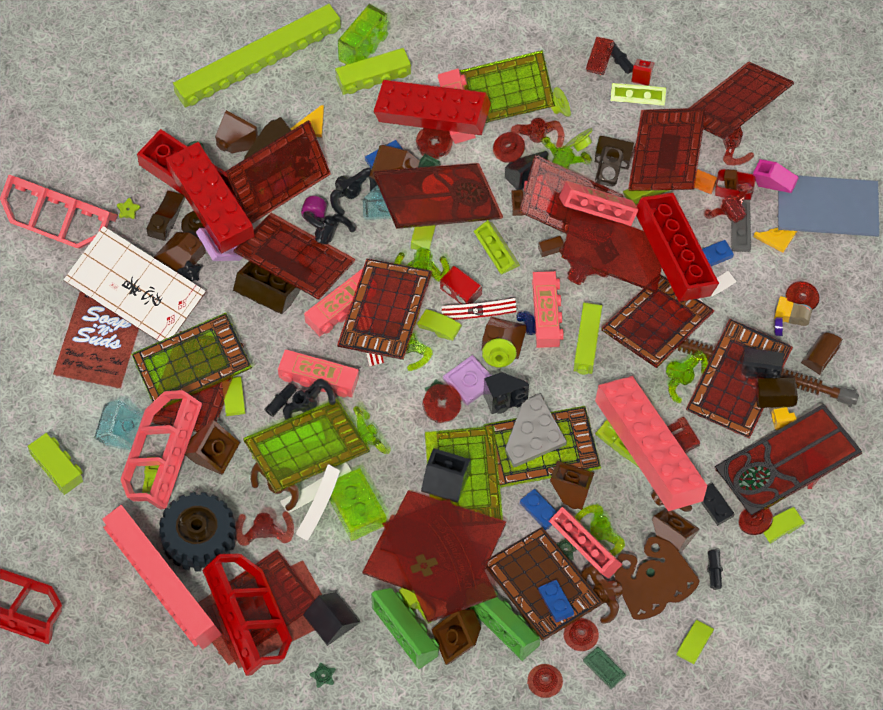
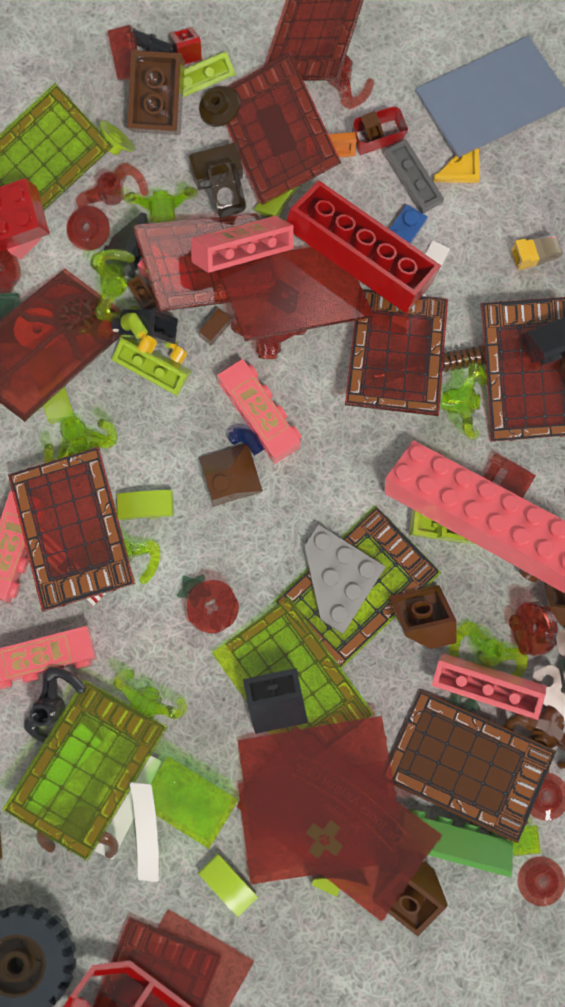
camera: 35 degrees left, 15 degrees up
(264, 528) = (97, 900): clear red piece -> none
(280, 399) = (14, 718): black axle -> none
(330, 617) = (250, 966): black slope -> none
(348, 565) = (227, 884): none -> lime slope
(404, 627) = (346, 927): bright green slope -> none
(461, 284) = (141, 440): red piece -> none
(467, 379) = (223, 553): lavender tile -> none
(479, 310) = (180, 458): sticker -> none
(499, 347) = (240, 502): lime piece -> none
(501, 184) = (111, 279): none -> clear neon green piece
(504, 392) = (276, 550): black slope -> none
(509, 221) = (149, 328): none -> torso
(538, 508) = (405, 669): blue plate -> none
(549, 648) = (528, 842): none -> clear neon green plate
(556, 601) = (503, 783): blue plate -> none
(581, 140) = (167, 173): lime piece -> none
(587, 338) = (329, 420): lime brick -> none
(602, 88) = (156, 92): none -> reddish brown brick
(635, 526) = (535, 641): none -> clear red plate
(640, 118) = (225, 111): none -> dark brown piece
(732, 205) = (395, 159): clear red piece -> none
(774, 176) = (419, 94): dark pink slope -> none
(779, 326) = (532, 277): dark purple tile -> none
(794, 295) = (538, 223): clear red piece -> none

